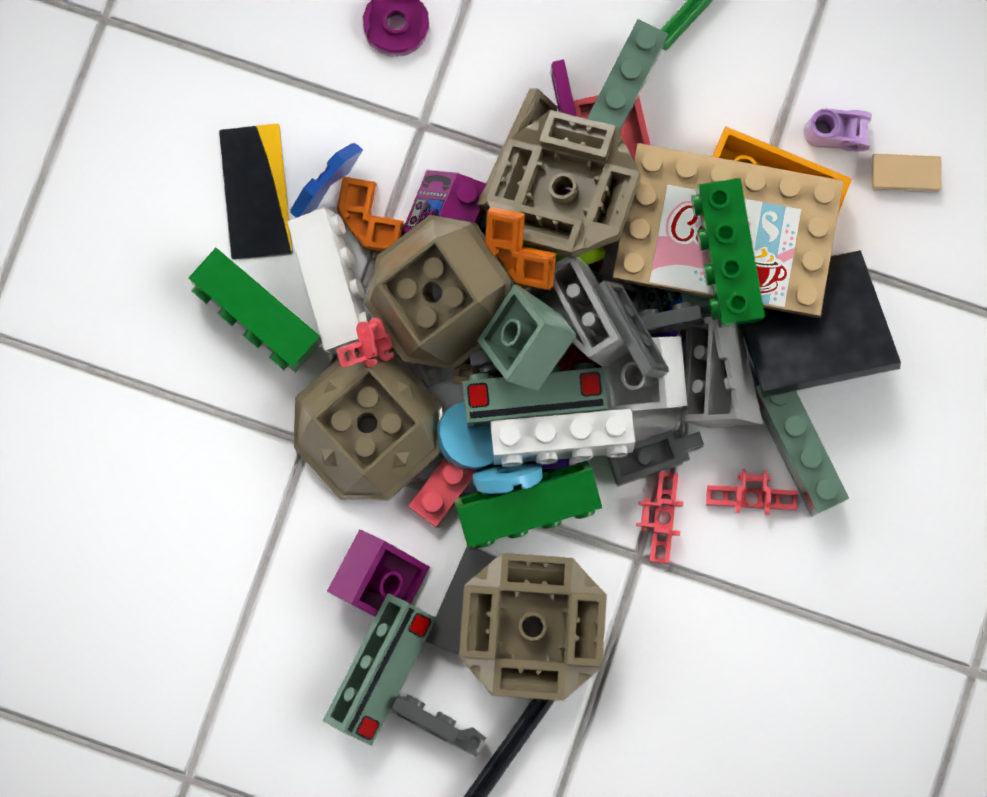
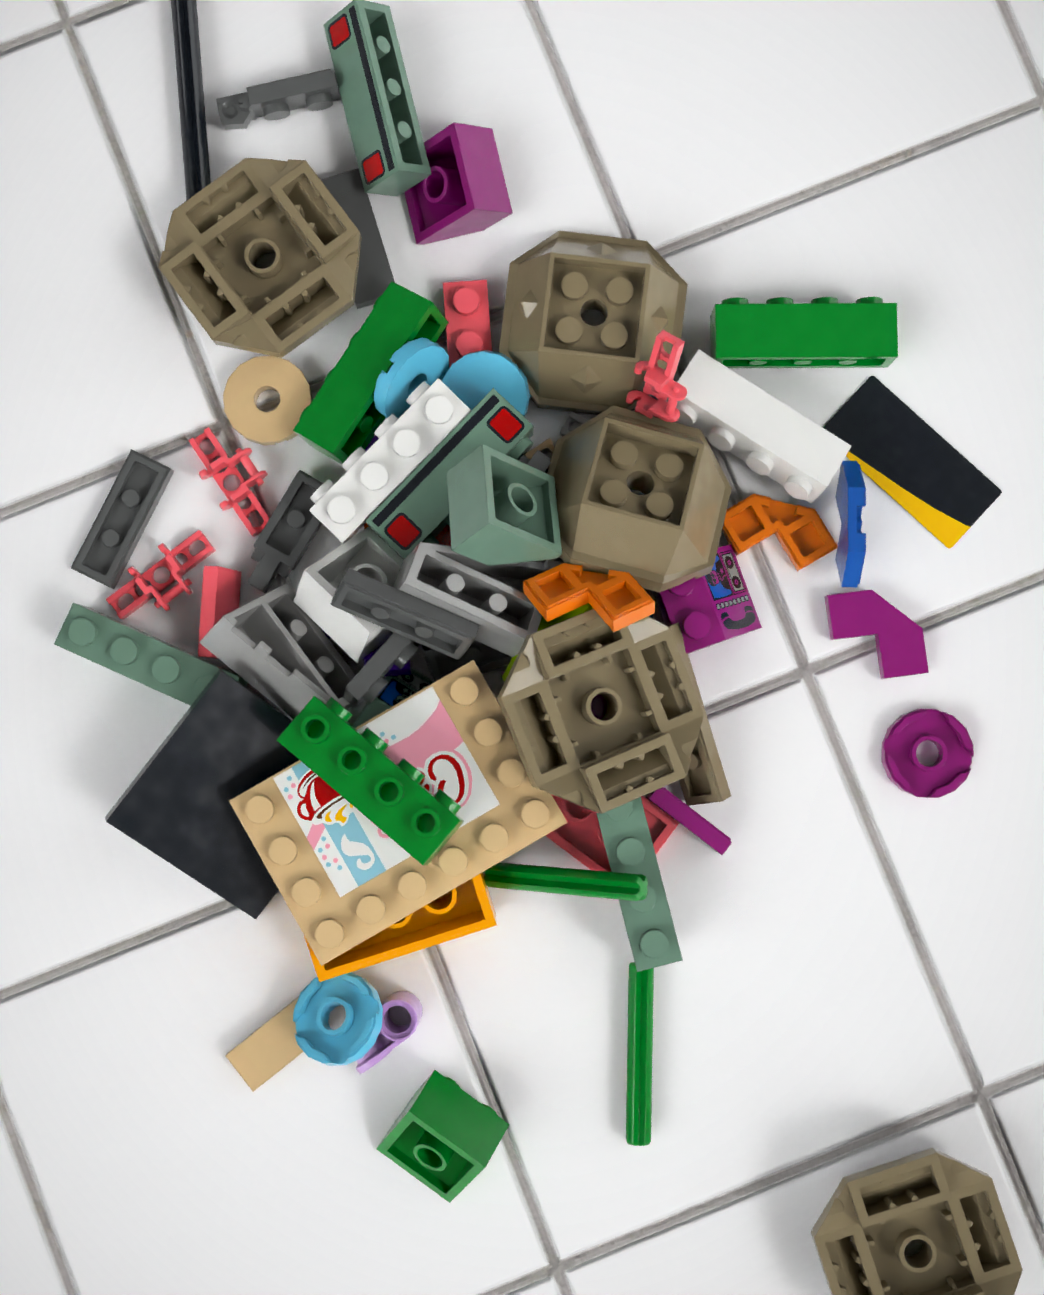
camera: 145 degrees right, 5 degrees up
(355, 98) = (897, 637): none -> magenta tile
(621, 546) = (249, 382): none -> tan tile
(661, 110) = (567, 881): none -> green axle
(733, 445) = (219, 597): none -> coral tile
(747, 550) = (122, 519): none -> dark grey tile
(852, 42) = (443, 1136): none -> green slope
(856, 132) = (357, 1032): none -> medium azure tile

